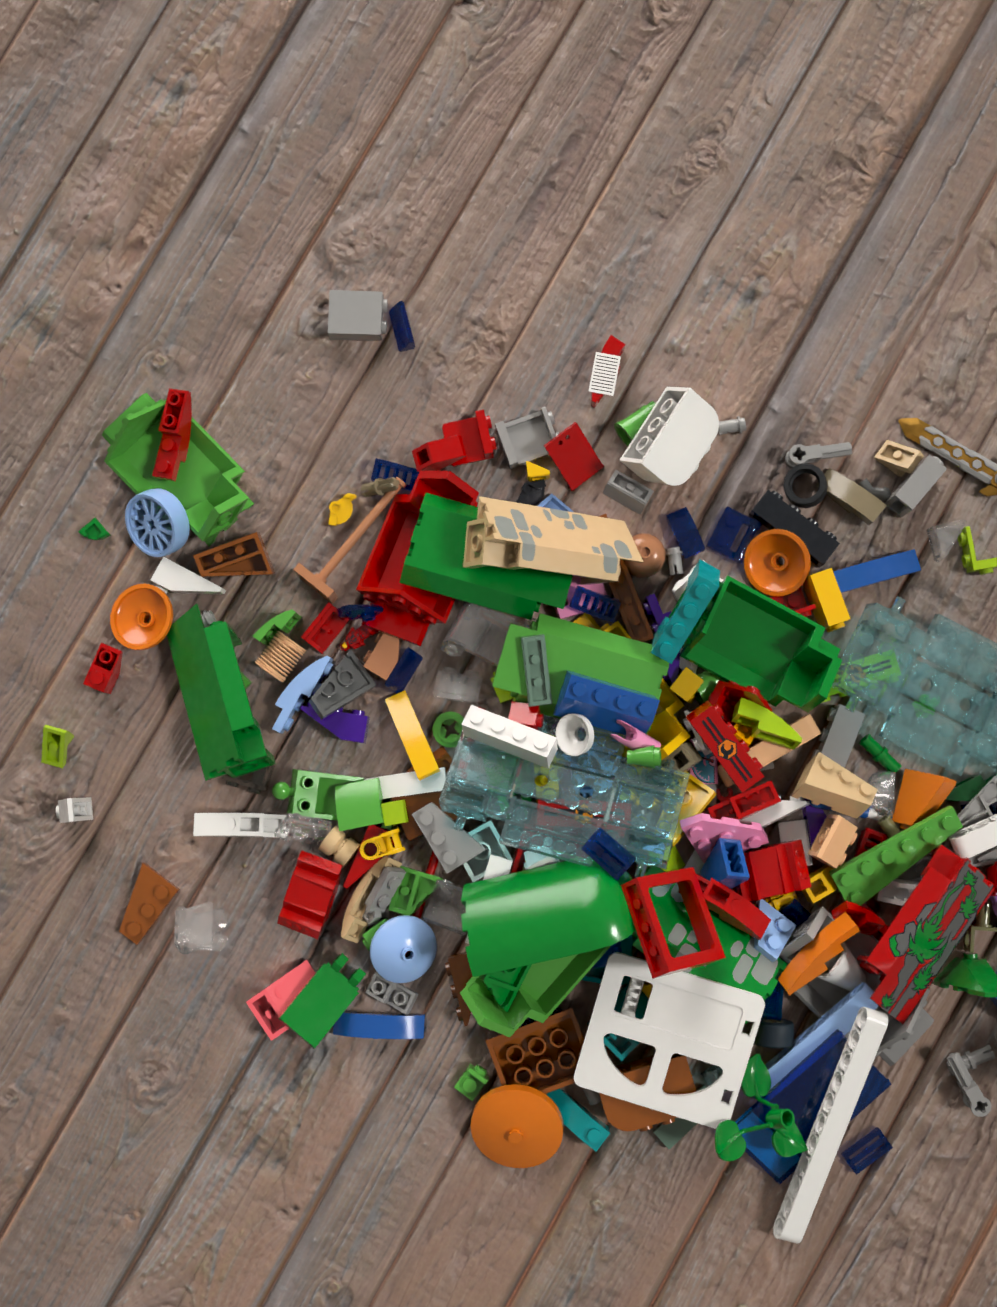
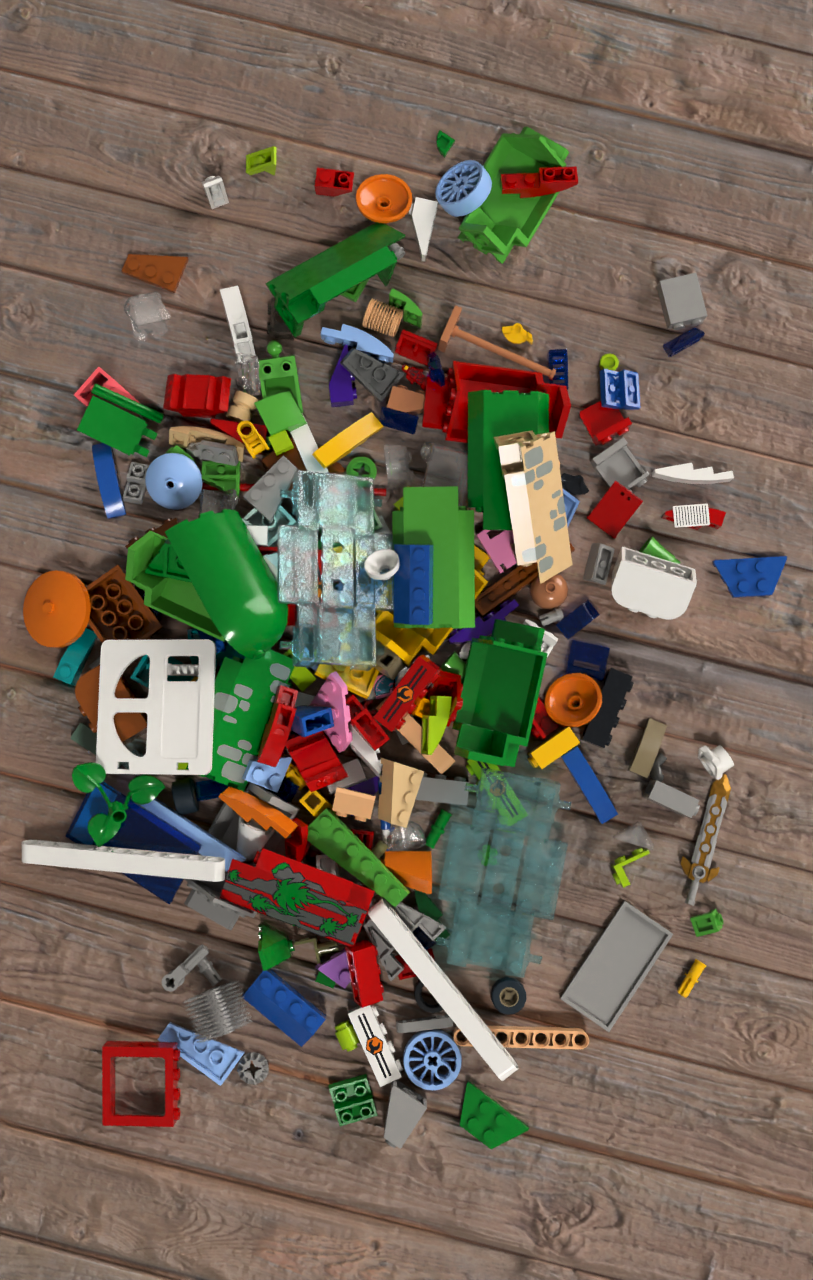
camera: 65 degrees right, 0 degrees up
(236, 557) = (453, 260): dark orange wedge -> none
(297, 979) = (127, 403): none -> green axle
(380, 486) = (544, 358): dark tan axle -> none
(403, 416) = (609, 361): none -> lime tile
(437, 412) = (620, 389): none -> blue slope
(439, 453) = (584, 398): red slope -> none
(472, 1081) = (83, 566): bright green bracket -> none
(509, 736) = (366, 513): white brick -> none
(526, 715) = (384, 522): brick -> none
(536, 473) = (592, 483): yellow slope -> none
(536, 670) = (426, 518): sand green tile -> none
(554, 365) = (686, 474): none -> white slope
(608, 853) = (292, 612): clear blue slope -> none
(614, 608) = (489, 566): clear blue slope -> none
(634, 737) = (391, 619): bright pink piece -> none
(646, 756) = (379, 625): bright green cone -> none
(649, 929) = (236, 660): red piece -> none
(675, 630) = (508, 626): teal arch -> none
(686, 328) = (750, 575): none -> blue wing
(687, 685) = (449, 651): yellow panel -> none
(732, 426) = (678, 634): light grey pin -> none
(802, 469) = (648, 694): black tyre -> none
(814, 453) = (675, 709): light grey connector -> none
(871, 1158) = (98, 890): clear blue tile -> none
(884, 425) = (715, 761): none -> white piece
(898, 457) = (691, 780): tan slope -> none

